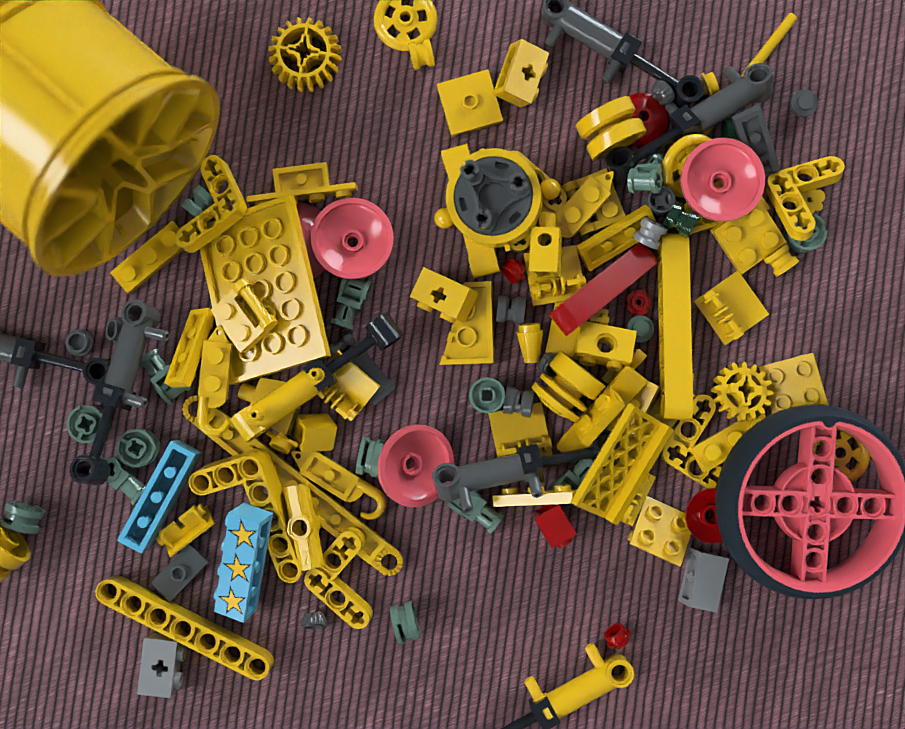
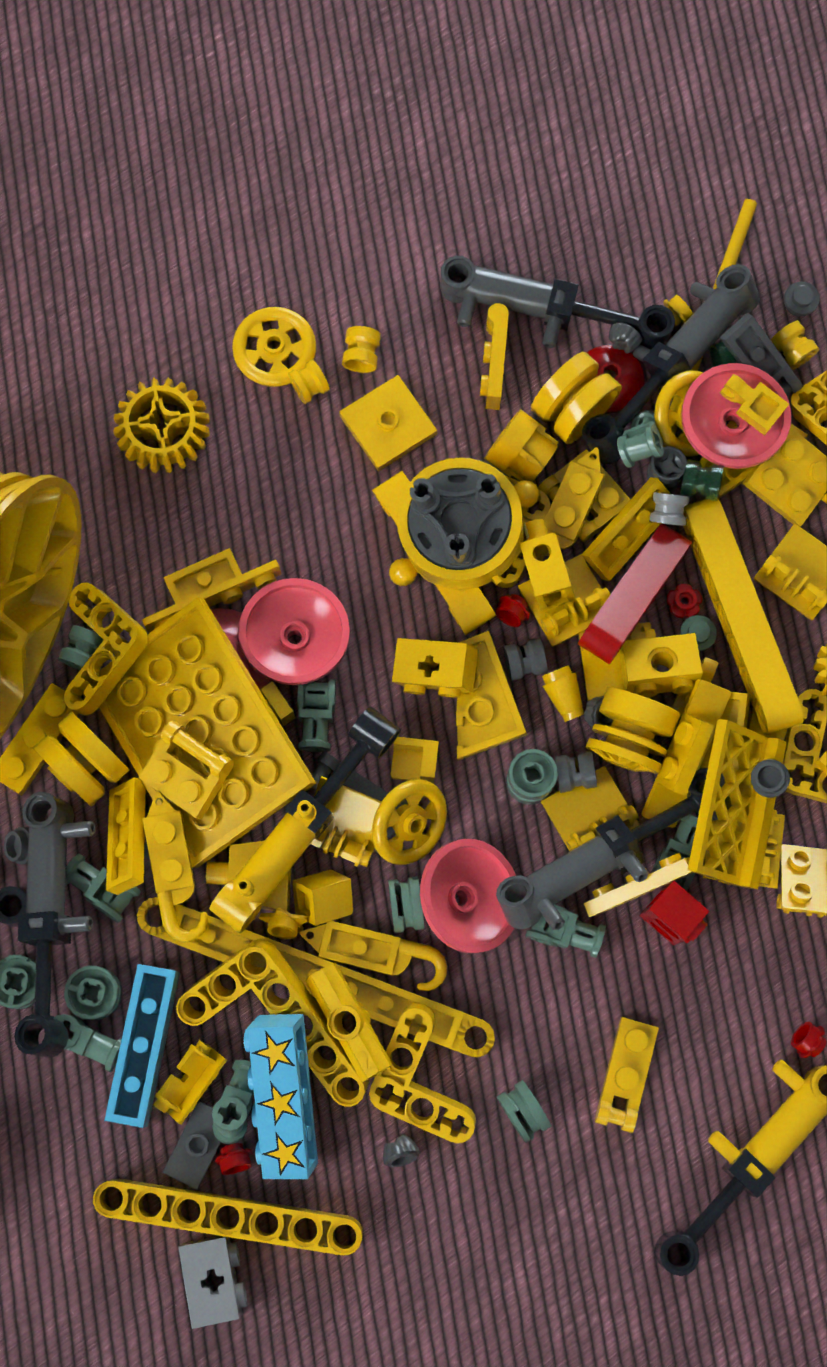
camera: 20 degrees left, 10 degrees down
(174, 284) = (76, 763): none -> yellow wheel
(200, 590) = (234, 1159): none -> red plate
(210, 552) = (234, 1102): none -> sand green connector
(324, 286) = (278, 703): none -> yellow plate
(390, 400) = (409, 821): none -> yellow plate
(409, 356) = (414, 759): none -> yellow panel
(468, 39) = (361, 343): none -> yellow wheel
(485, 617) = (626, 1073): none -> yellow plate
(521, 62) = (442, 366): yellow brick -> none
(559, 154) = (522, 448): none -> yellow piece
(562, 76) = (495, 355): none -> yellow plate
(652, 453) = (770, 778): none -> dark grey plate
(741, 178) = (758, 407): none -> yellow plate
(785, 137) = (794, 345): none -> yellow wheel

